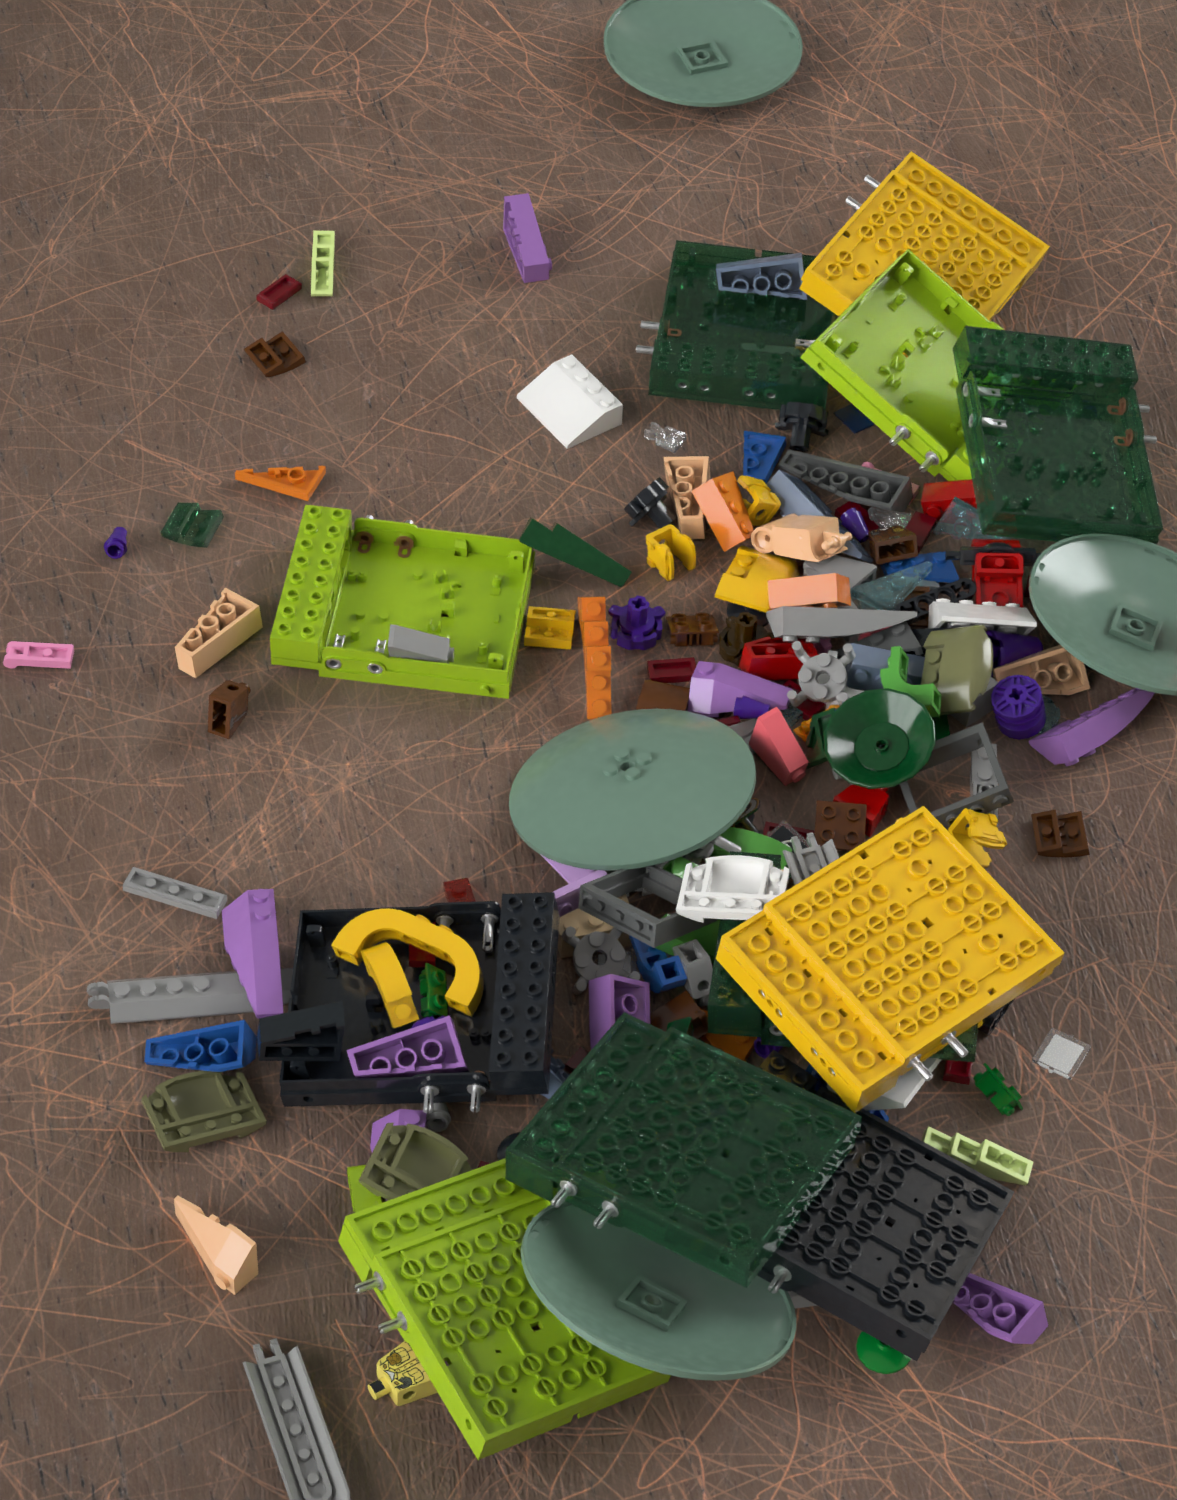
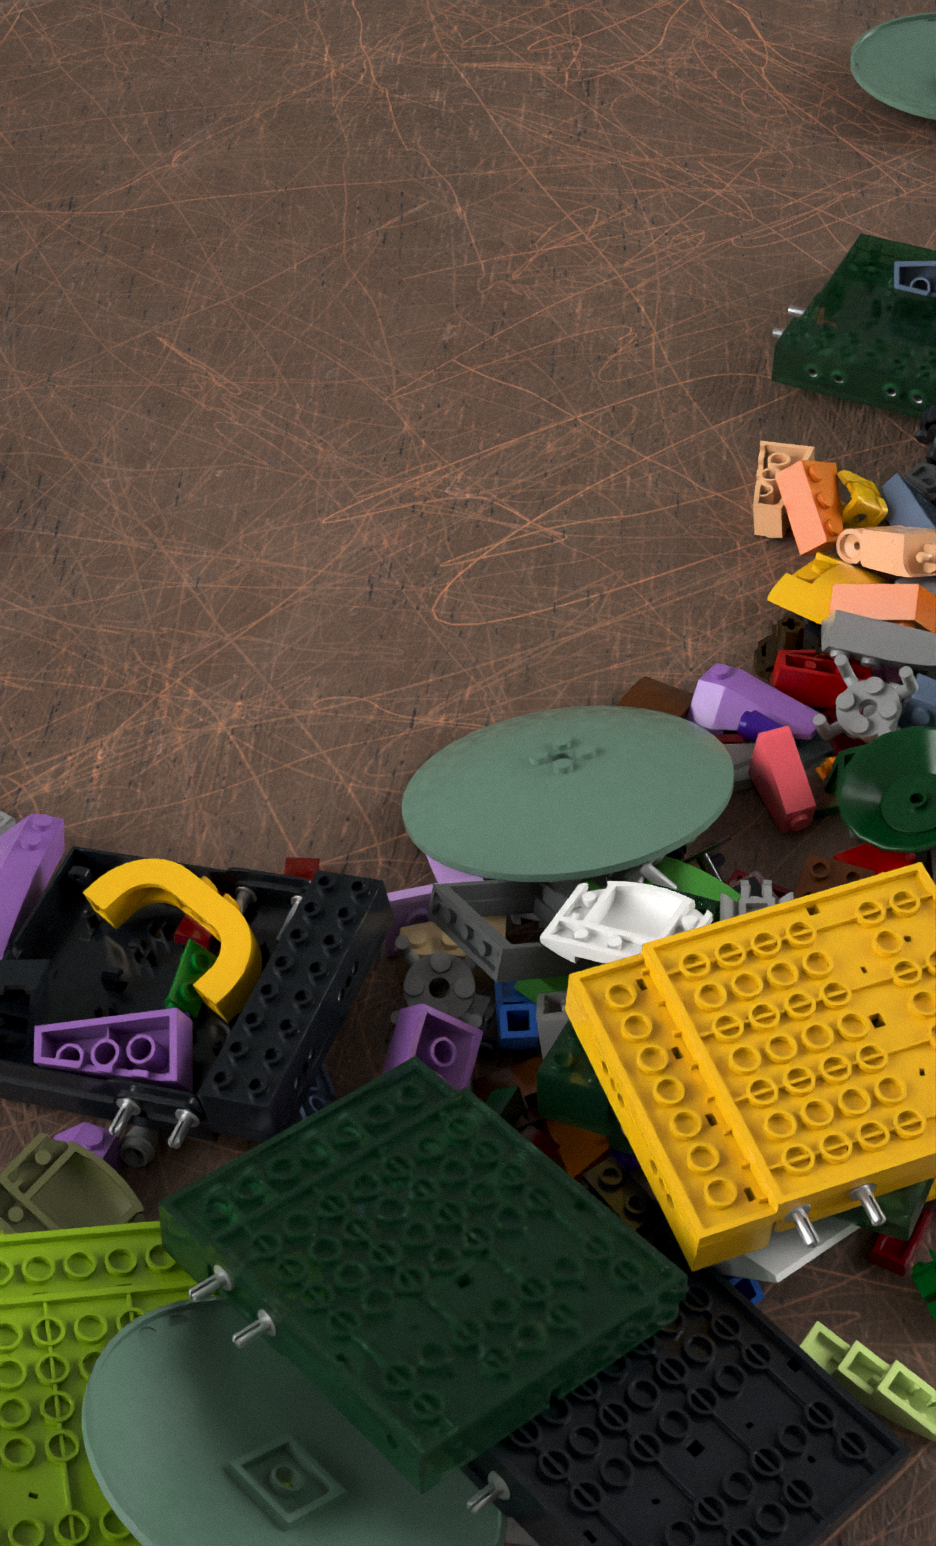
camera: 20 degrees right, 5 degrees down
(117, 543) = (89, 429): dark purple cone -> none
(192, 525) = (185, 426): clear green slope -> none
(218, 633) = (149, 535): light nougat wedge -> none
(227, 708) = (121, 612): reddish brown torso -> none
(275, 355) = (360, 284): reddish brown slope -> none
(279, 291) = (395, 227): dark red tile -> none
(285, 480) = (311, 400): orange wing -> none
(322, 263) = (454, 207): yellowish green slope -> none
(357, 582) = (354, 537): lime piece -> none
(391, 981) = (129, 956): yellow arch -> none
(419, 645) = (369, 587): light grey slope -> none
(525, 238) = (690, 212): medium lavender wedge -> none
(549, 627) = (550, 600): yellow slope -> none
(571, 402) = (677, 375): white slope -> none
(573, 550) = (609, 519): dark green wedge -> none
(596, 655) = (585, 631): orange arch -> none
(637, 621) = (657, 611): dark purple piece -> none
(651, 503) = (727, 486): black piece -> none
(662, 554) = (741, 536): yellow piece -> none
(666, 438) = (778, 428): clear plate -> none
(671, 670) = (680, 672): dark red tile -> none
(697, 624) = (741, 627): reddish brown hinge -> none
(761, 454) = (889, 458): blue wing -> none

